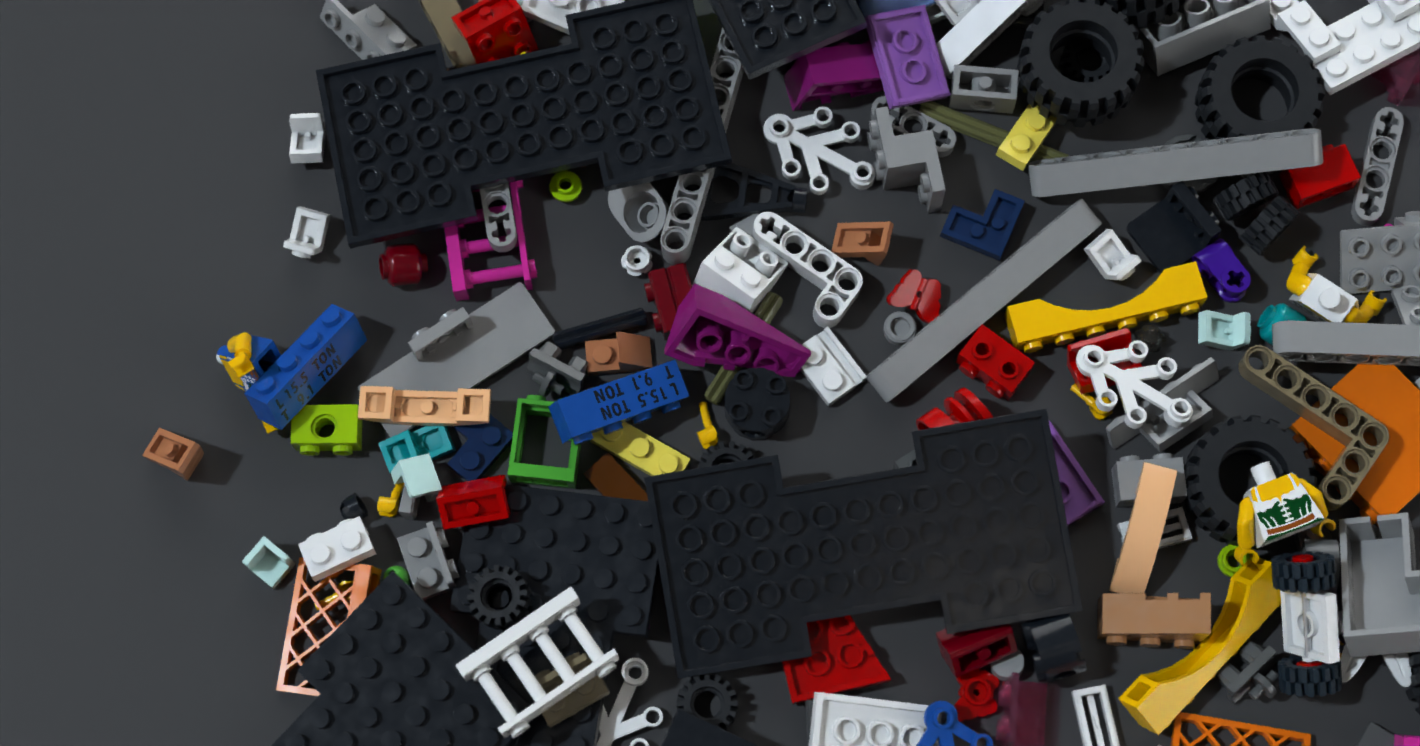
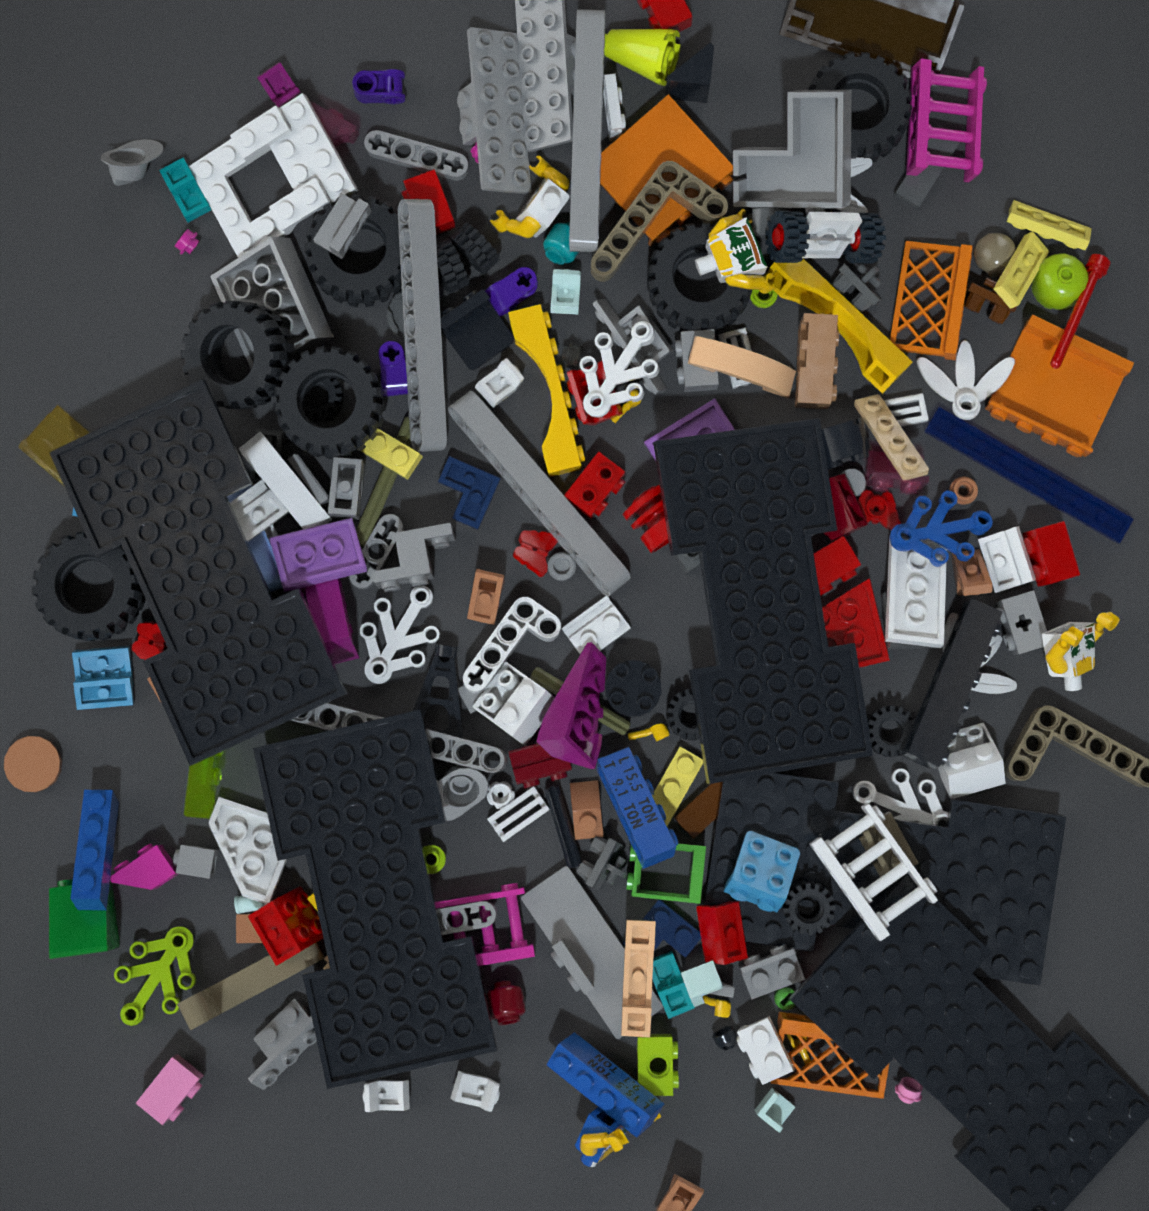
camera: 90 degrees left, 10 degrees up
(282, 718) = (909, 1090): none -> bright pink plate
(542, 543) = (763, 872): none -> dark azure bracket
(599, 259) = (538, 800): none -> white tile
(905, 634) = (835, 562): none -> red brick
(996, 49) = (309, 480): none -> light grey tile
(1062, 701) = (891, 437): none -> tan bracket
(1122, 136) = (393, 373): none -> dark purple piece
(1286, 72) = (342, 225): none -> light grey panel

